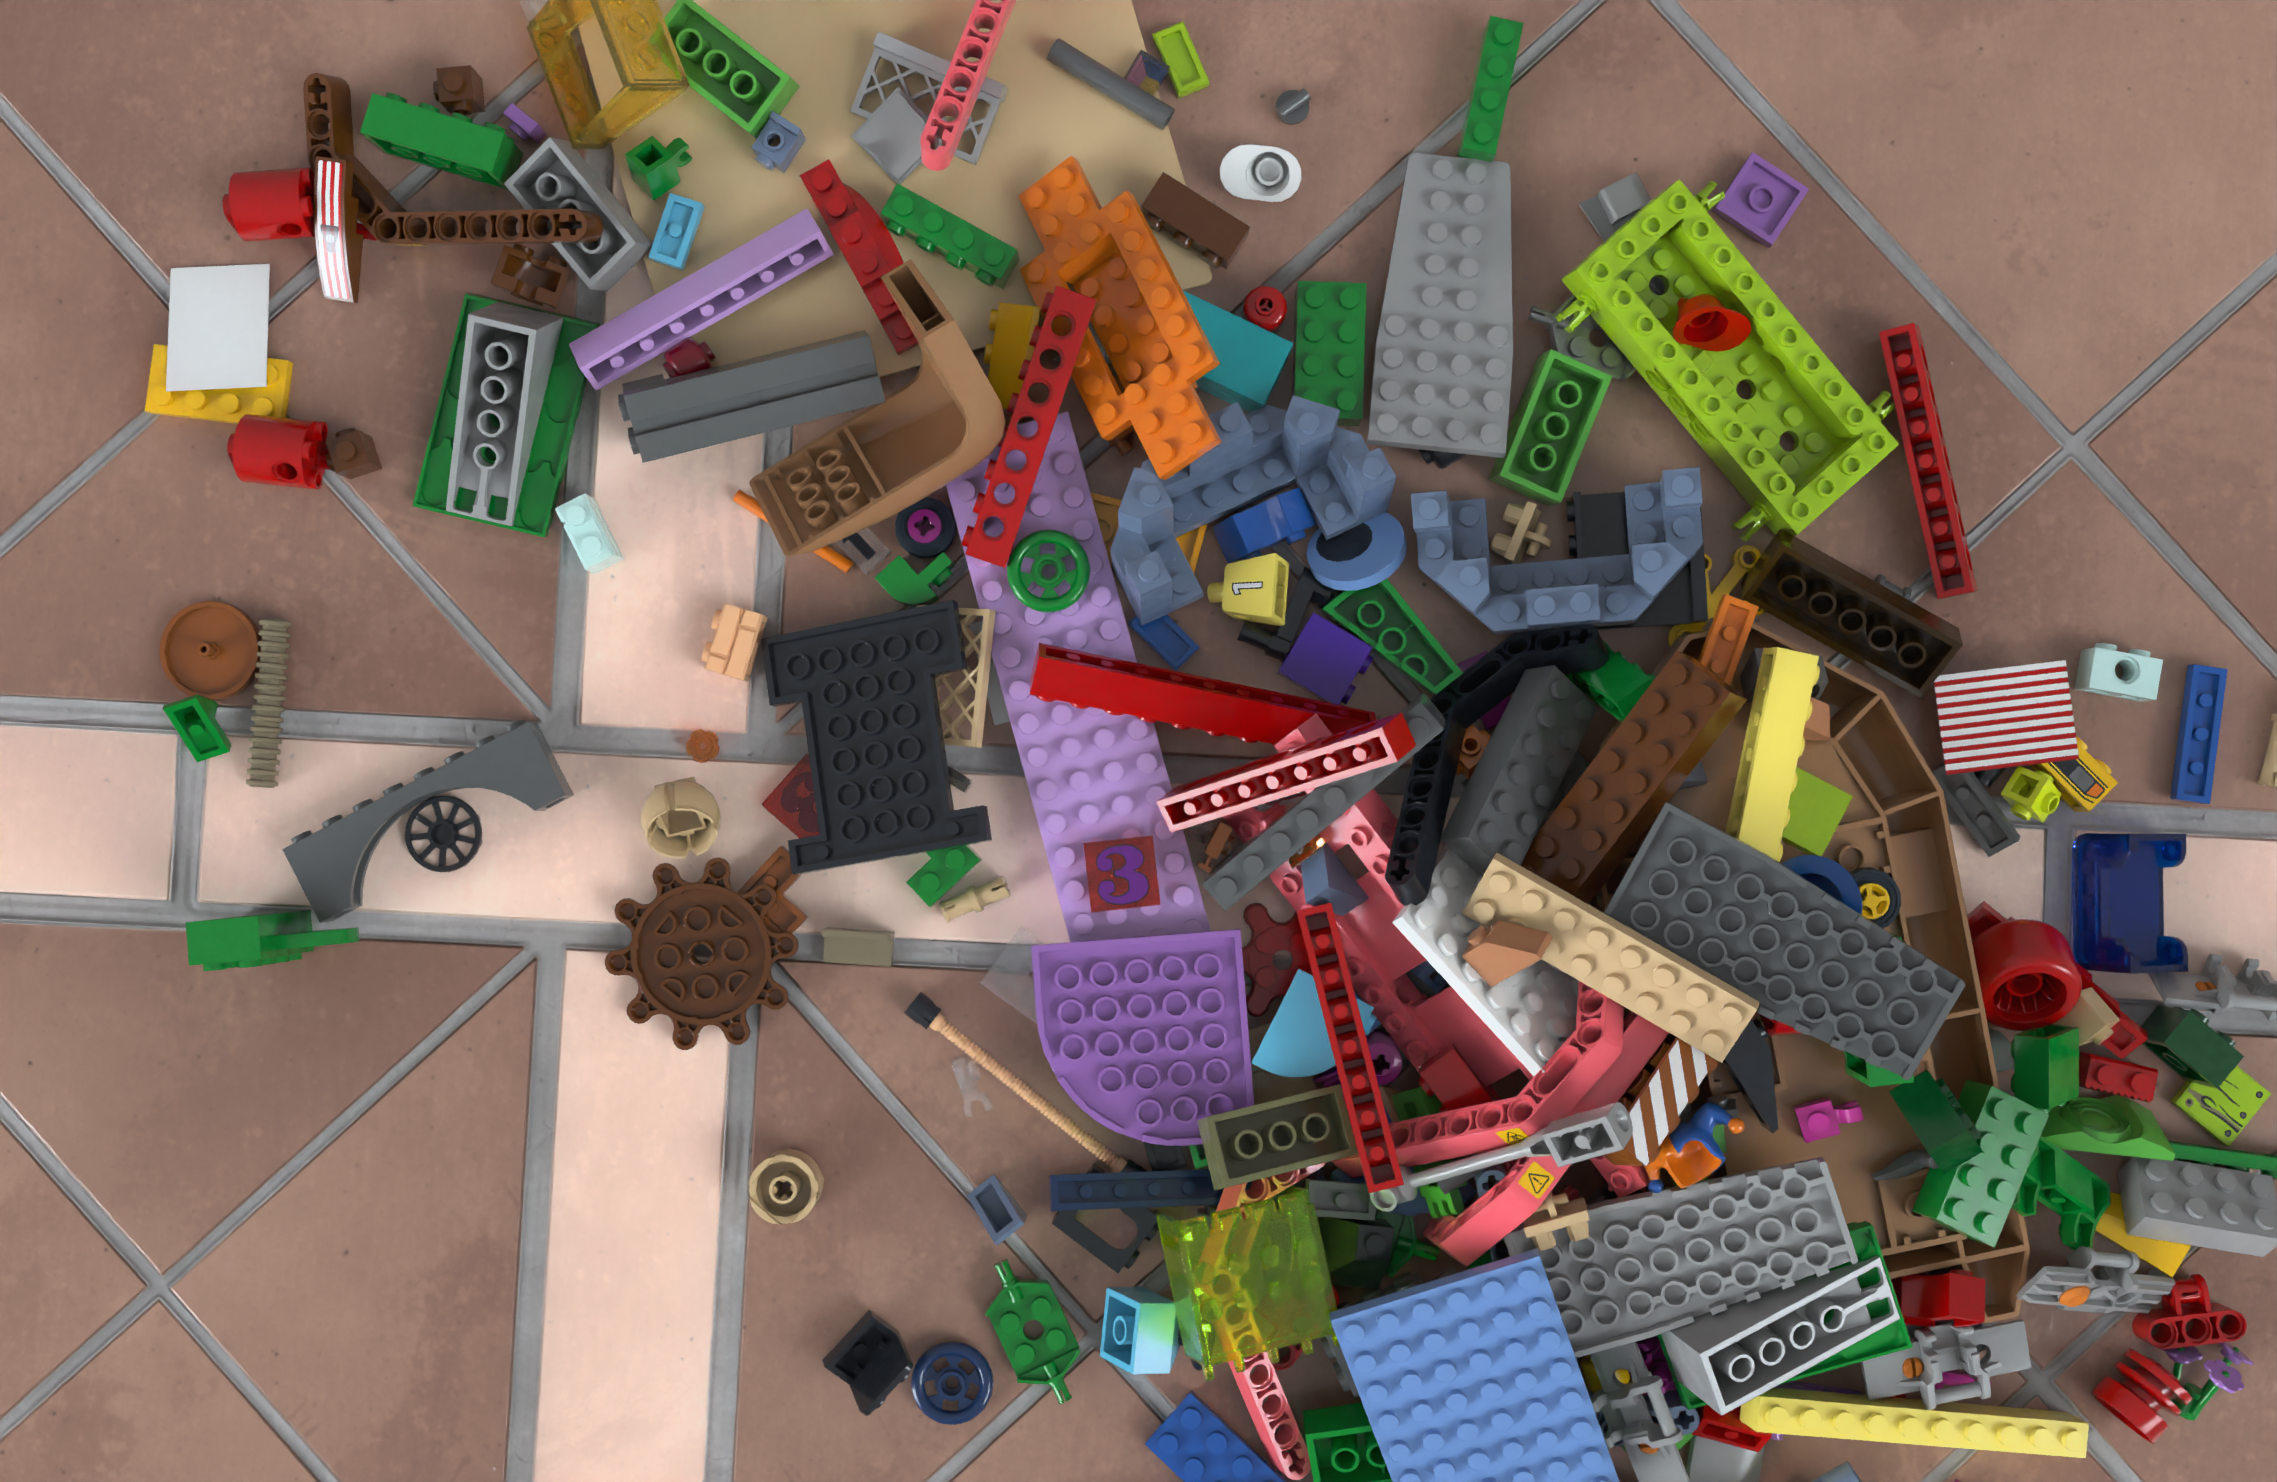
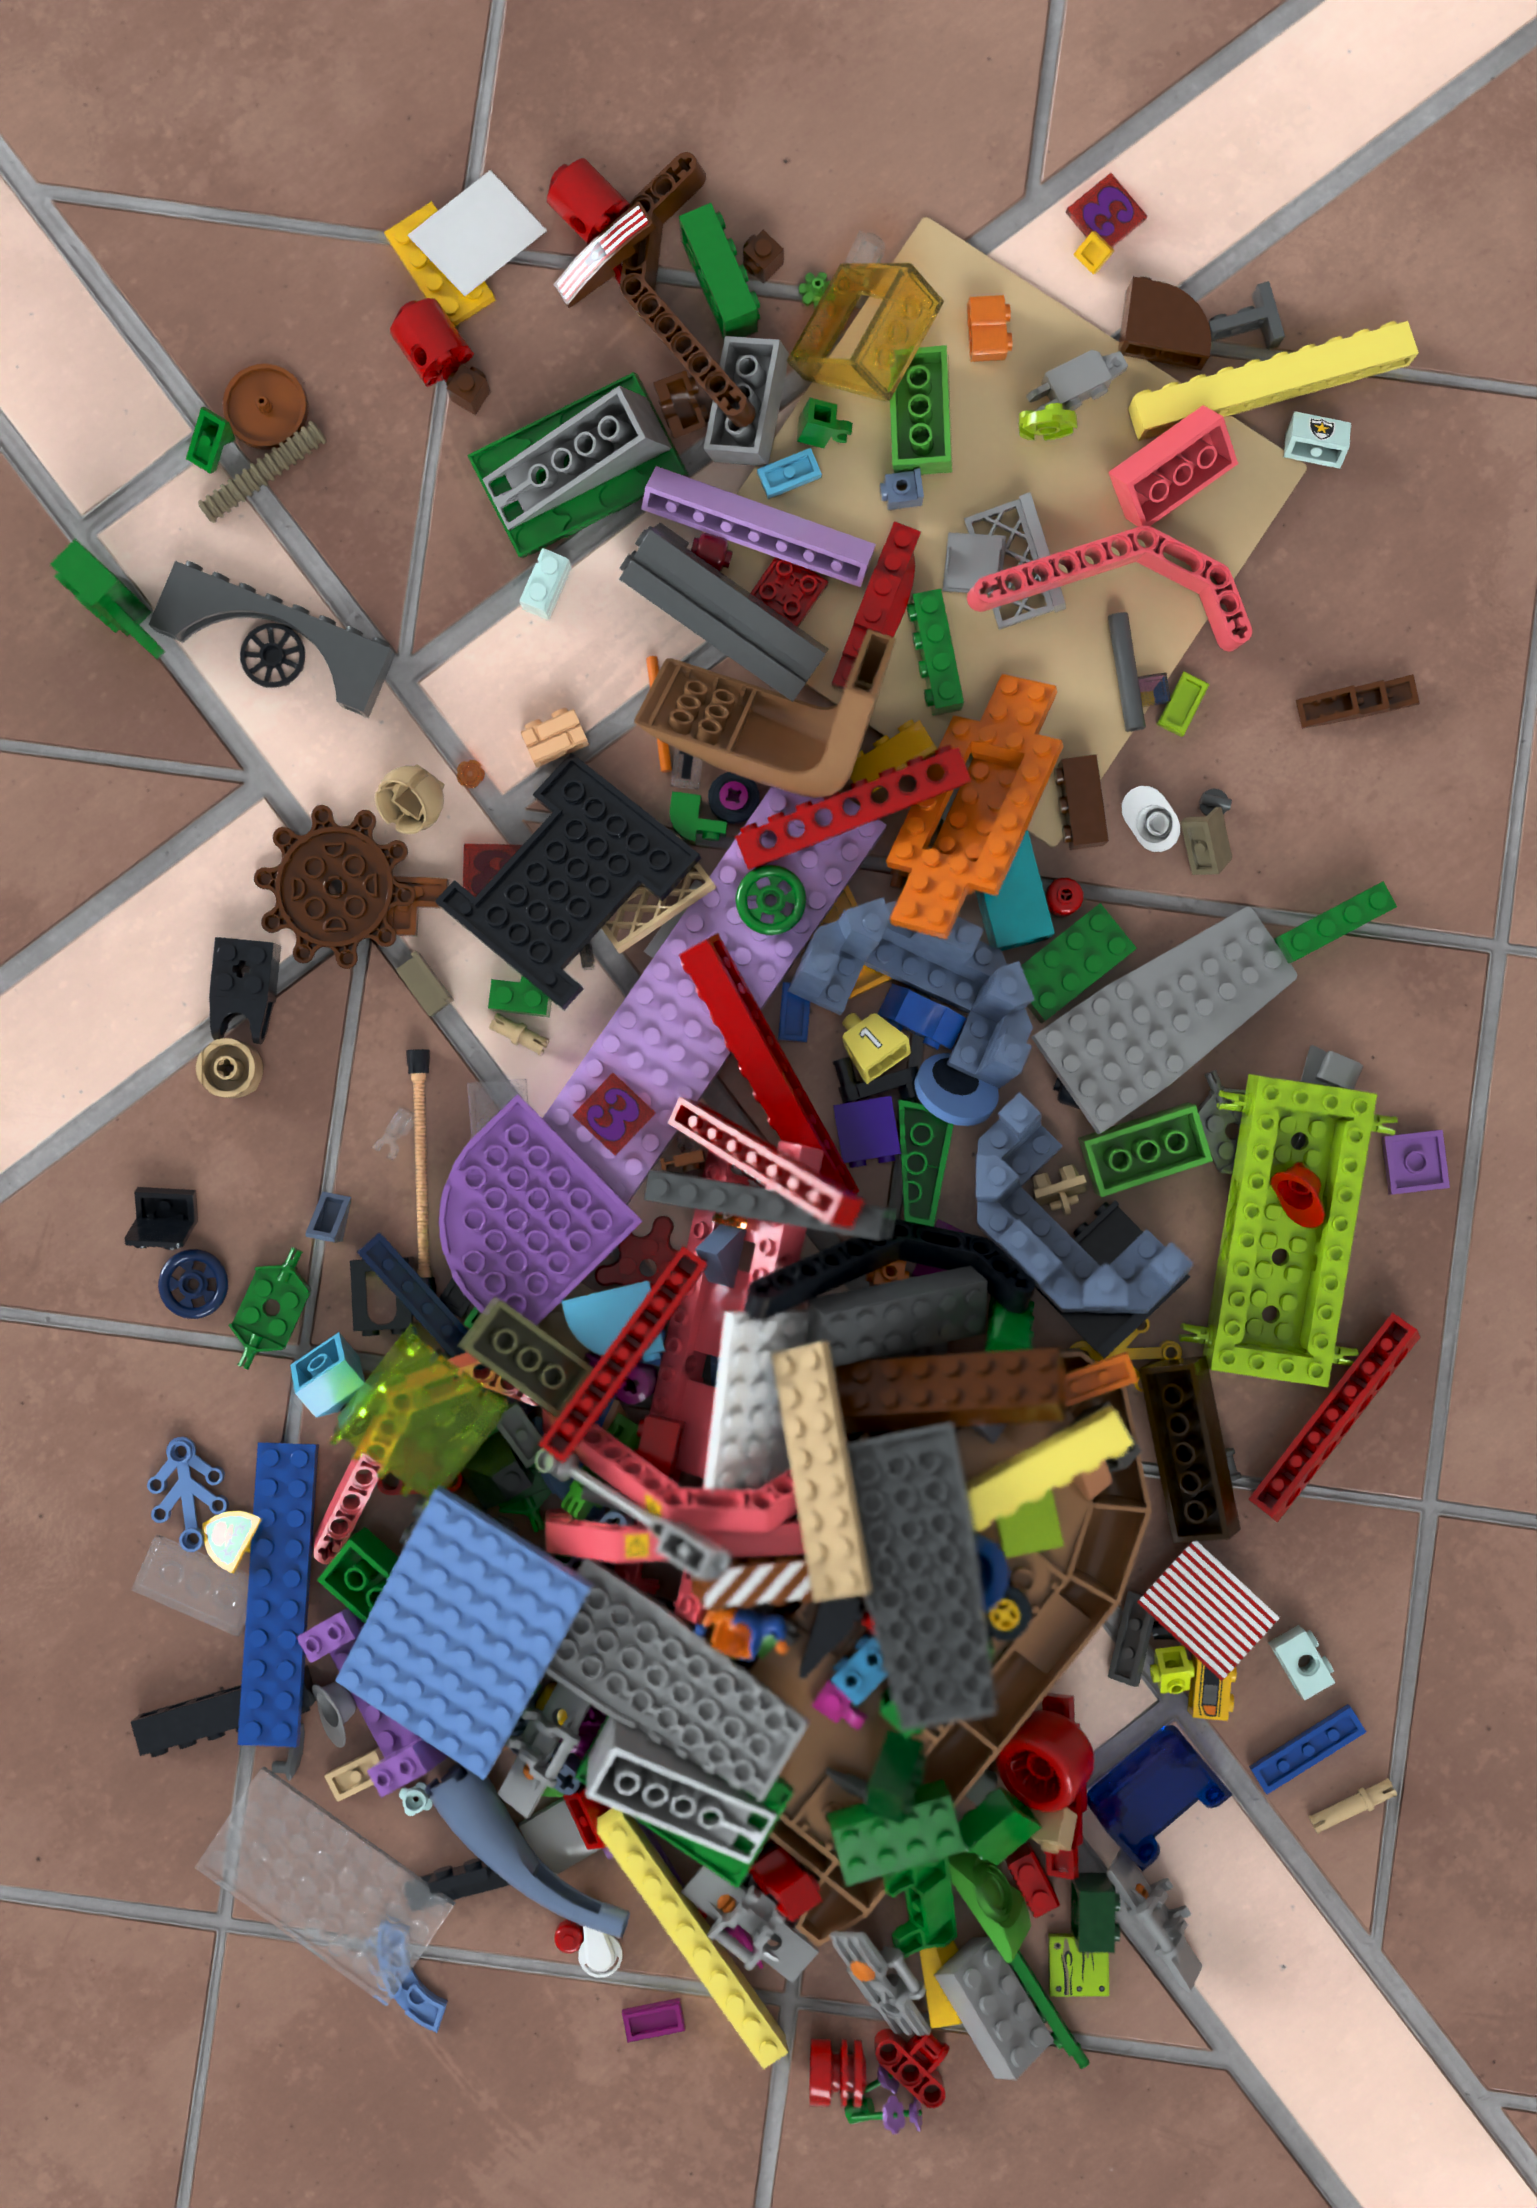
camera: 55 degrees right, 0 degrees up
(523, 125) = (774, 315): medium lavender plate -> none
(528, 70) = (813, 288): none -> bright green plant
(734, 1114) = (246, 995): none -> black brick
(781, 319) = (789, 589): none -> red tile
(1323, 142) = (1207, 843): none -> dark tan panel
(1504, 950) = (768, 1399): nougat slope -> none
(1555, 1214) = (625, 1577): tan hips -> none
(1813, 1070) = (860, 1672): none -> dark azure brick

